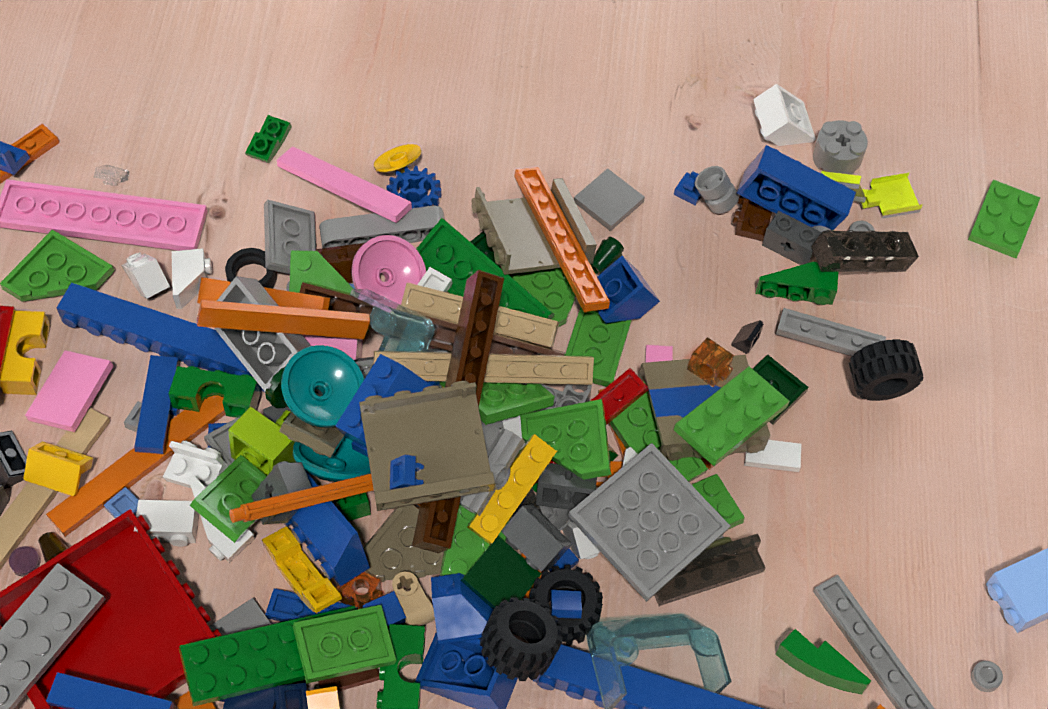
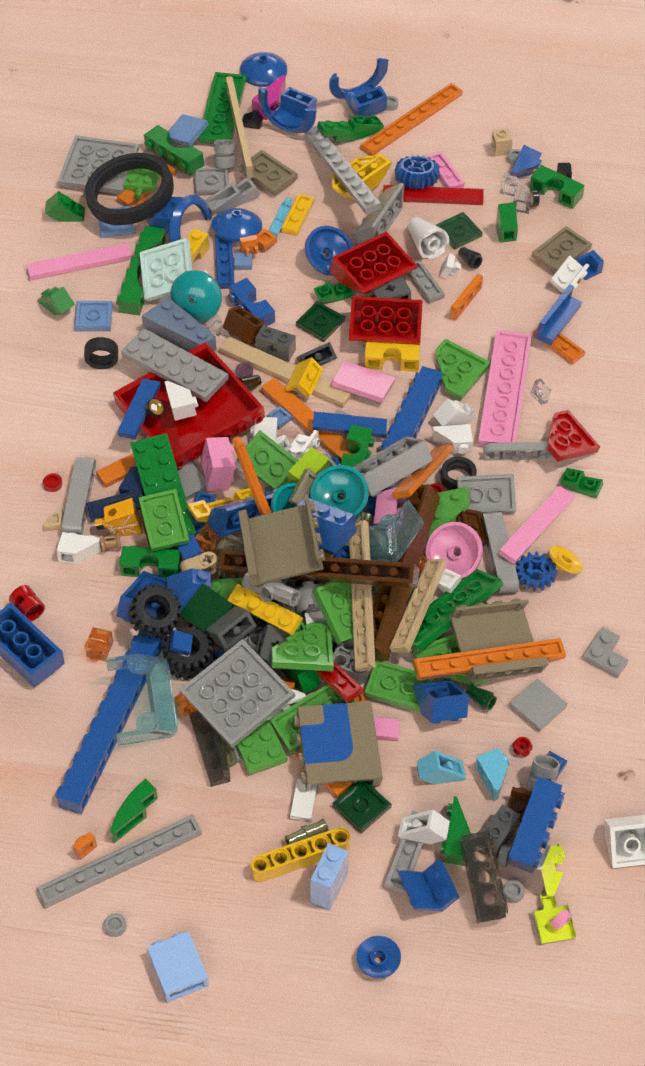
camera: 95 degrees right, 5 degrees down
(105, 634) = (181, 401): none -> white slope
(115, 675) = (154, 408): none -> tile
(199, 143) = (569, 438): none -> red plate
(214, 202) = (498, 451): none -> light grey beam
(227, 578) = (218, 463): none -> bright pink brick
(282, 319) = (384, 460): orange tile -> none
(282, 479) = (270, 478): dark grey brick -> none
(403, 472) = (261, 526): blue tile -> none
(529, 135) = (602, 656): none -> light grey plate
(645, 609) = (184, 706): none -> orange wheel
(671, 211) = (522, 741): none -> red plate
(711, 362) = (367, 743): clear orange brick -> none
(712, 244) = (493, 770): none -> medium azure slope
(716, 300) = (440, 768): none -> medium azure slope
(731, 416) = (323, 755): bright green plate -> none
(748, 336) = (407, 792): black slope -> none
(809, 311) = (424, 827): none -> white slope
(822, 448) = (307, 831): none -> olive pin
(840, 147) = (597, 879): light grey brick -> none
(854, 464) = (295, 862): none -> yellow beam
(880, 309) = (429, 889): none -> blue bracket
(886, 370) = (366, 875): black tyre -> none
(893, 410) = (329, 876): none -> light blue brick
(896, 183) = (561, 919): none -> bright pink tile
(976, 356) = (378, 947): none -> blue dish
(1004, 219) = (534, 1013): bright green plate -> none

